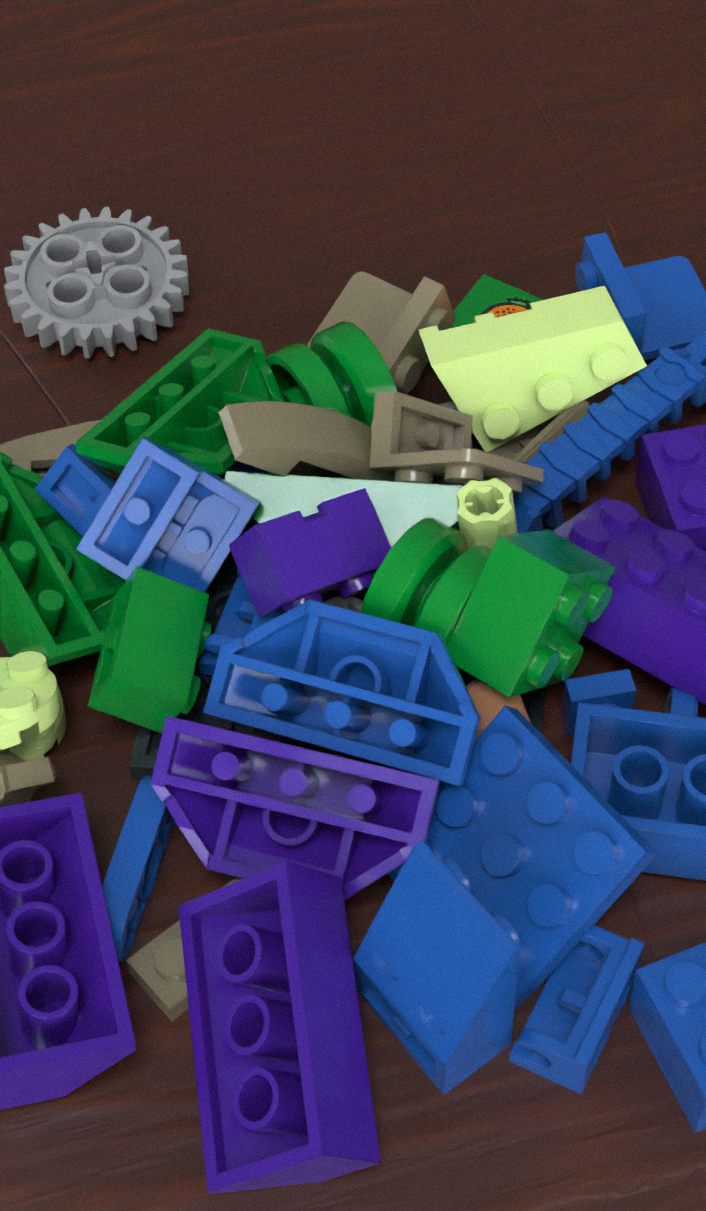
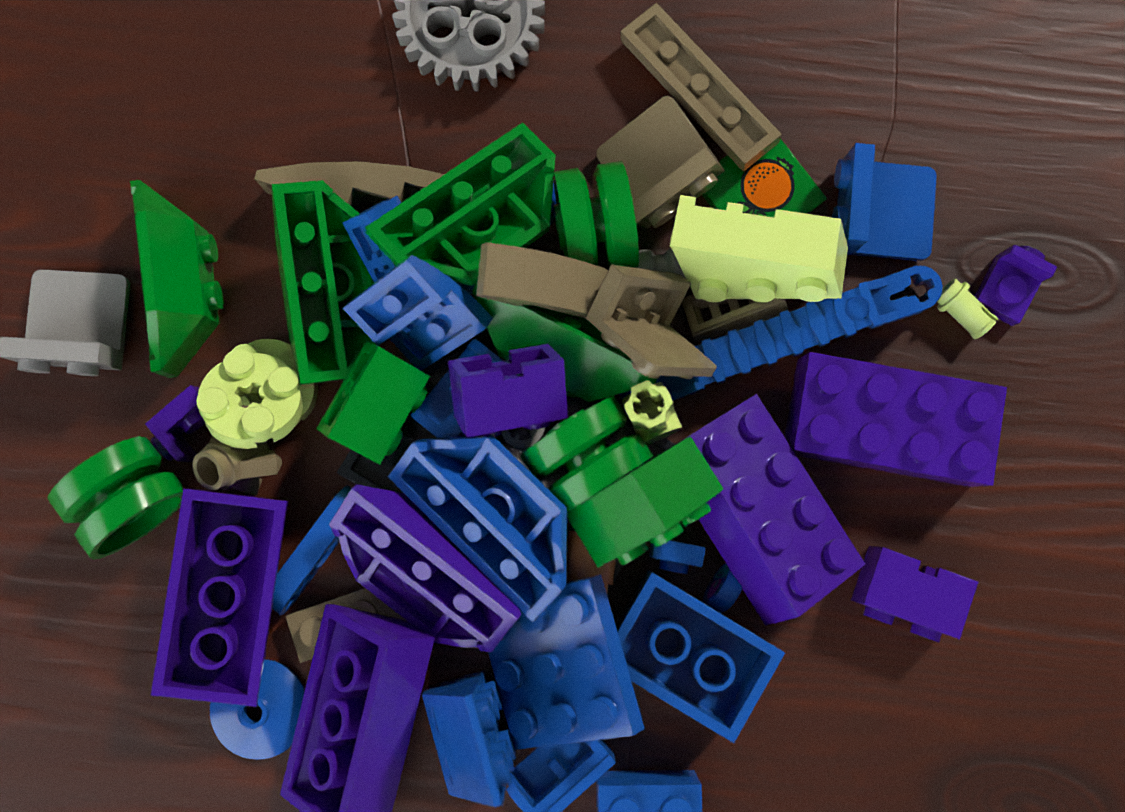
camera: 20 degrees right, 30 degrees up
(140, 1133) = (280, 704): none -> blue dish
(351, 247) = (700, 87): none -> dark tan plate

